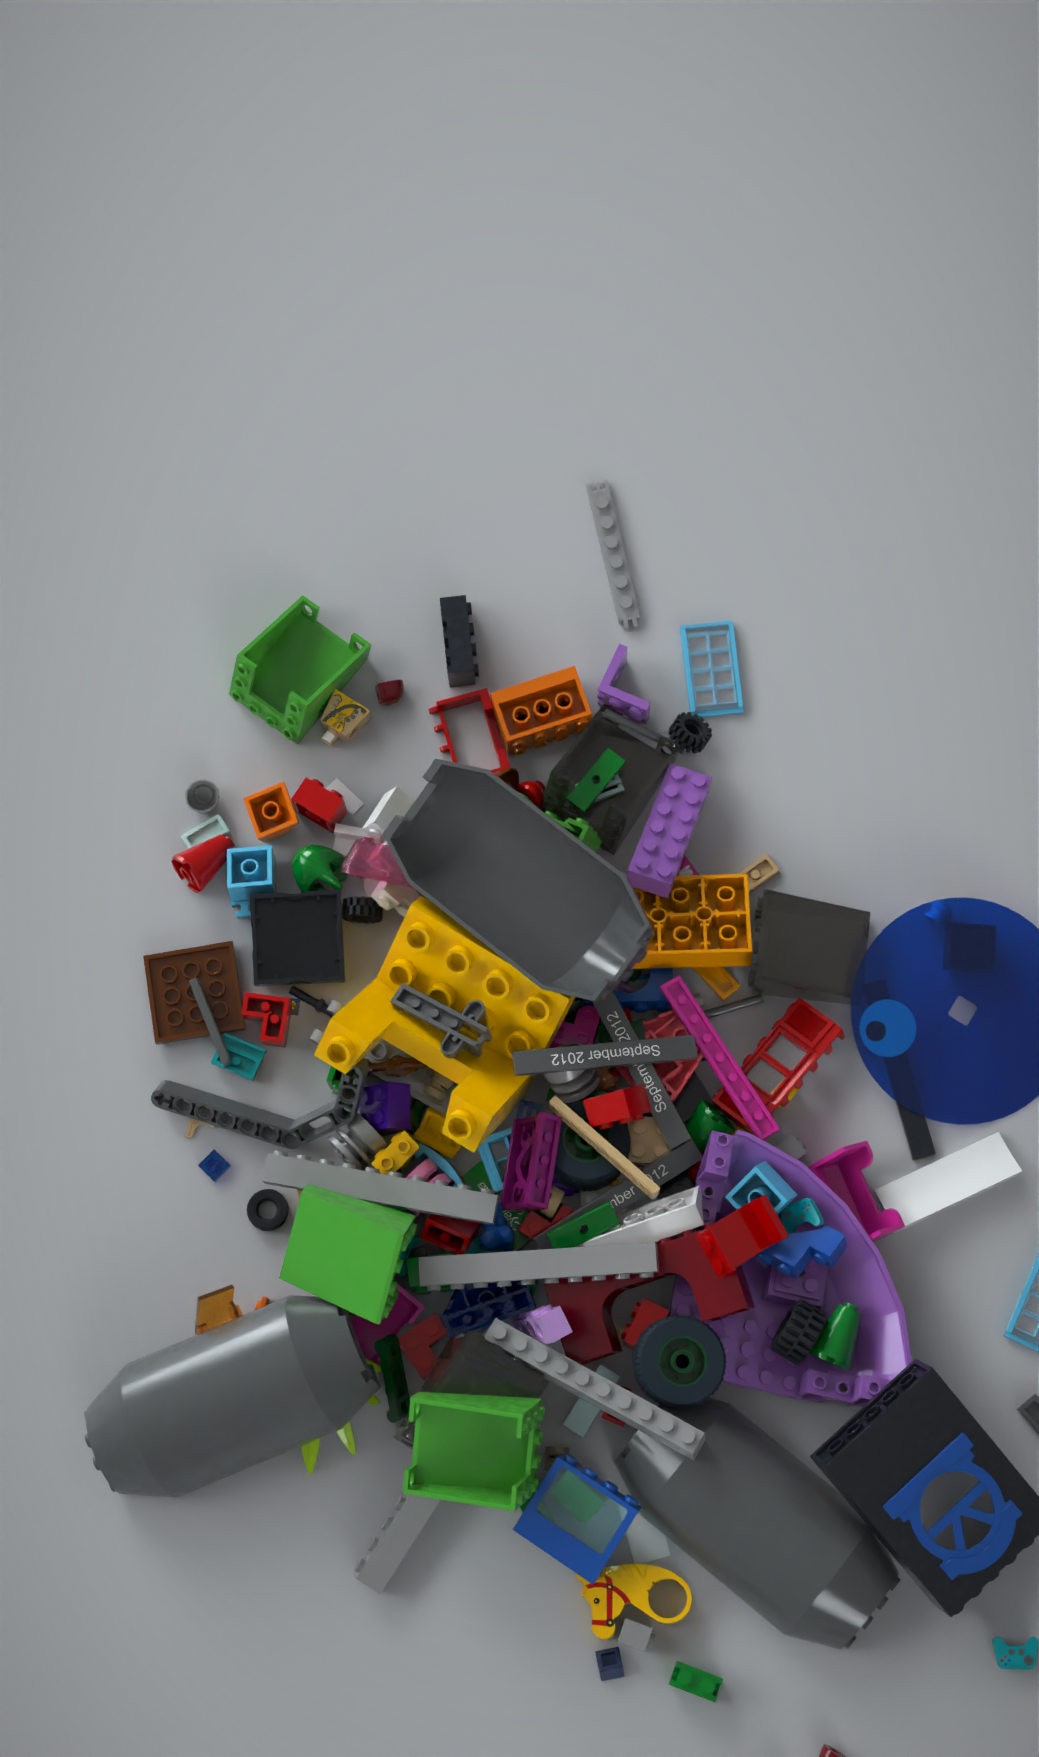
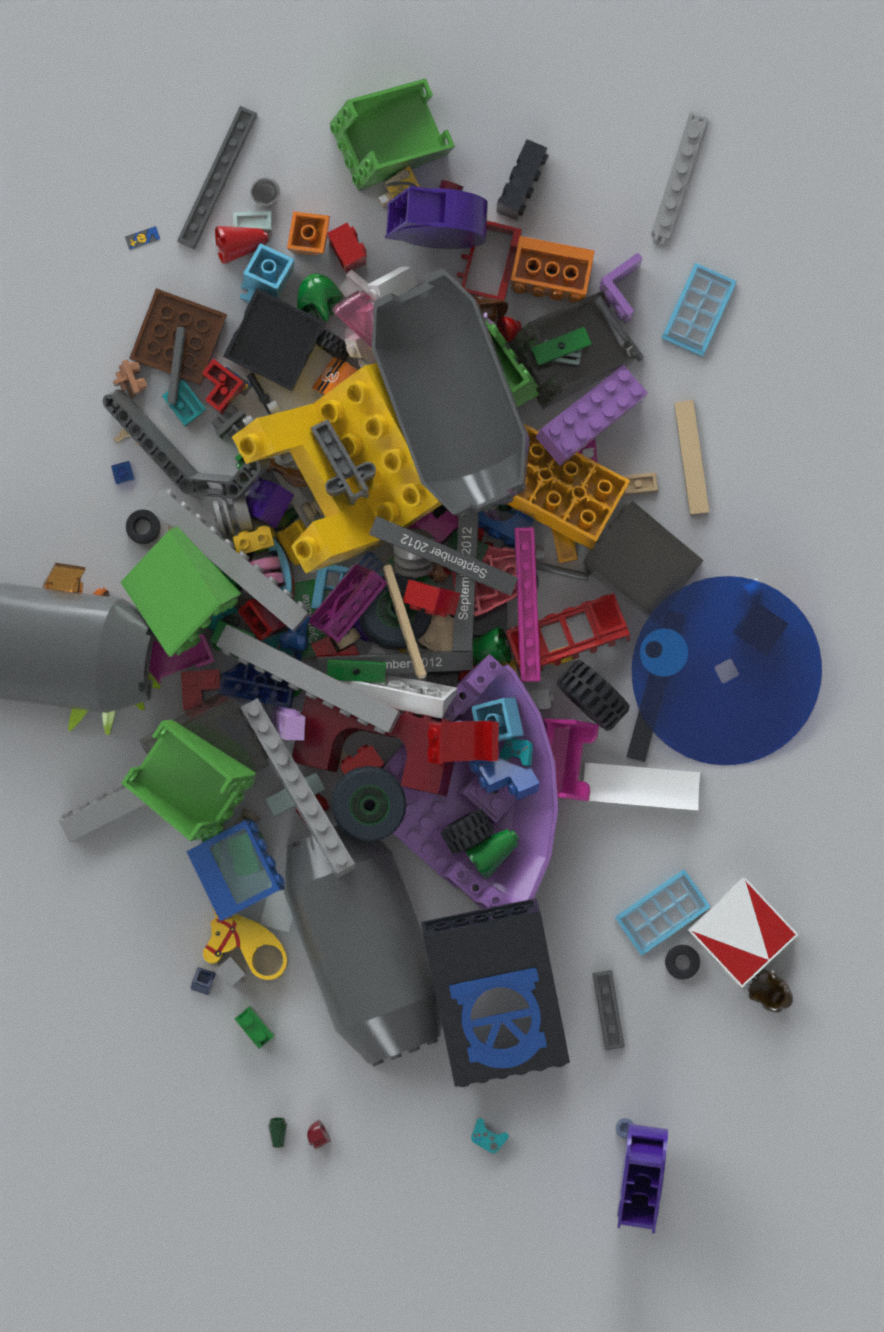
camera: 25 degrees right, 10 degrees up
(99, 914) = (142, 237): none -> sticker
(144, 811) = (217, 177): none -> dark grey tile
(165, 1066) = (126, 378): none -> nougat hips
(301, 1040) = (223, 428): none -> dark grey hips
(351, 801) = (372, 251): white sticker -> none
(378, 941) = (333, 375): none -> orange slope
(394, 1377) = (165, 696): dark green plate -> none
(396, 721) = (437, 218): none -> dark purple brick
(690, 732) = (645, 353): black tyre -> none
(793, 818) = (691, 457): none -> tan tile
(843, 1112) = (593, 695): none -> black tyre

